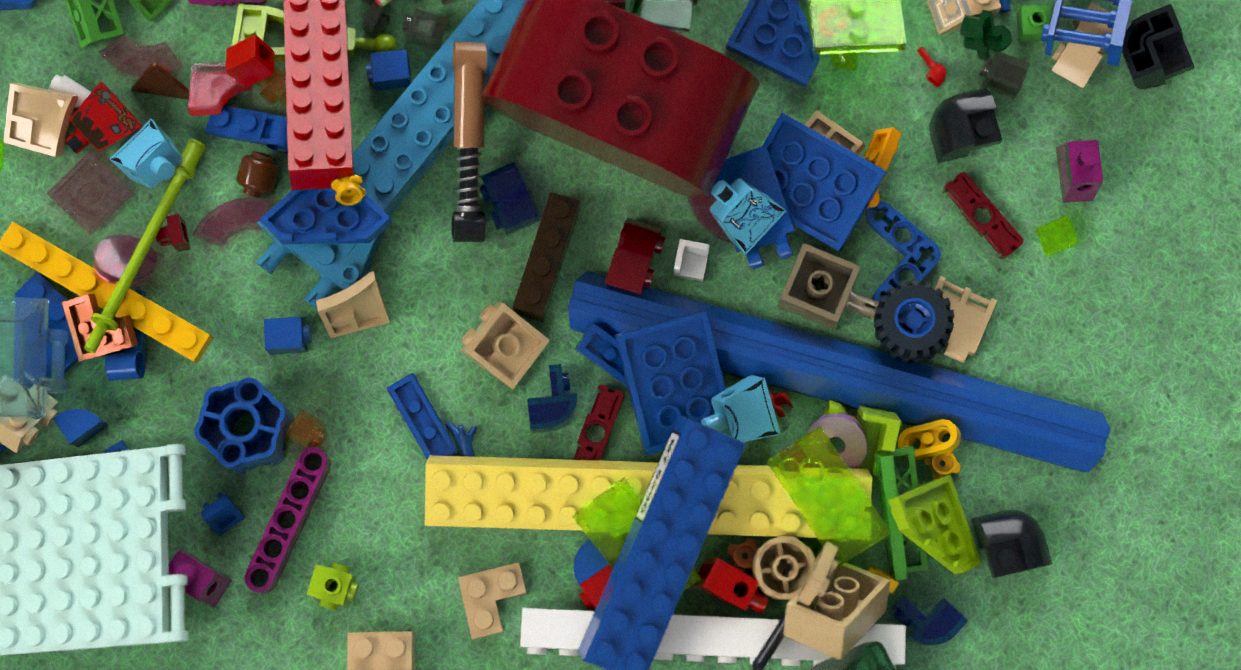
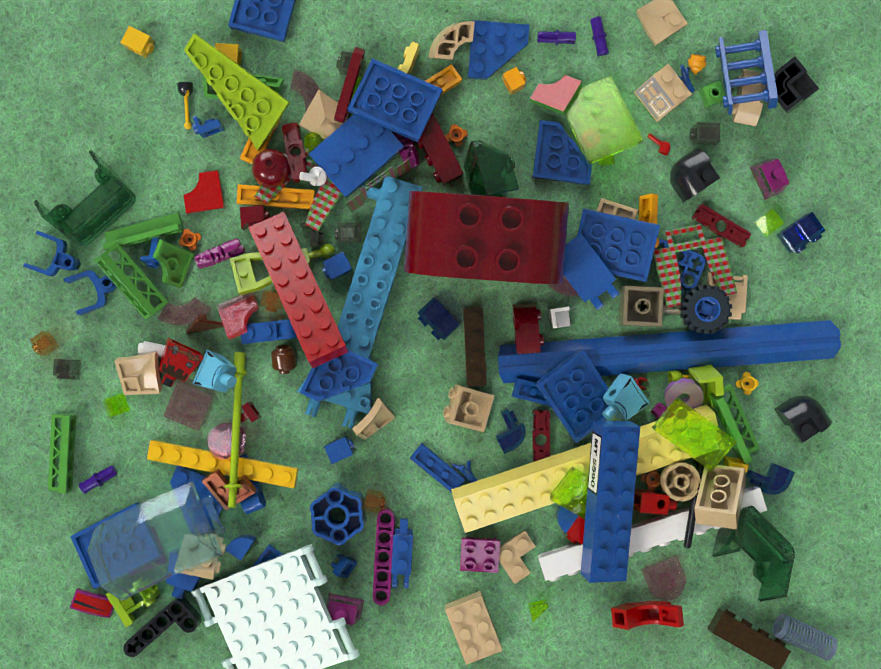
camera: 20 degrees left, 10 degrees up
(232, 218) = (278, 390): clear pink tile -> none
(250, 61) = (253, 294): red brick -> none
(317, 525) = (402, 553): none -> blue hinge
(324, 578) = (418, 587): lime brick -> none
(349, 190) = (347, 357): yellow plate -> none
(435, 573) = (479, 554): none -> magenta hinge
(469, 81) = (388, 253): piece -> none
(744, 212) = (585, 281): medium azure torso -> none
(819, 574) = (705, 483): tan plate -> none
(880, 244) = (668, 266): none -> piece
(931, 438) = (737, 373): yellow plate -> none
(937, 523) = (758, 423): lime plate -> none
(983, 34) = (687, 114): dark green hips -> none
(1099, 267) = (801, 232): none -> clear blue brick

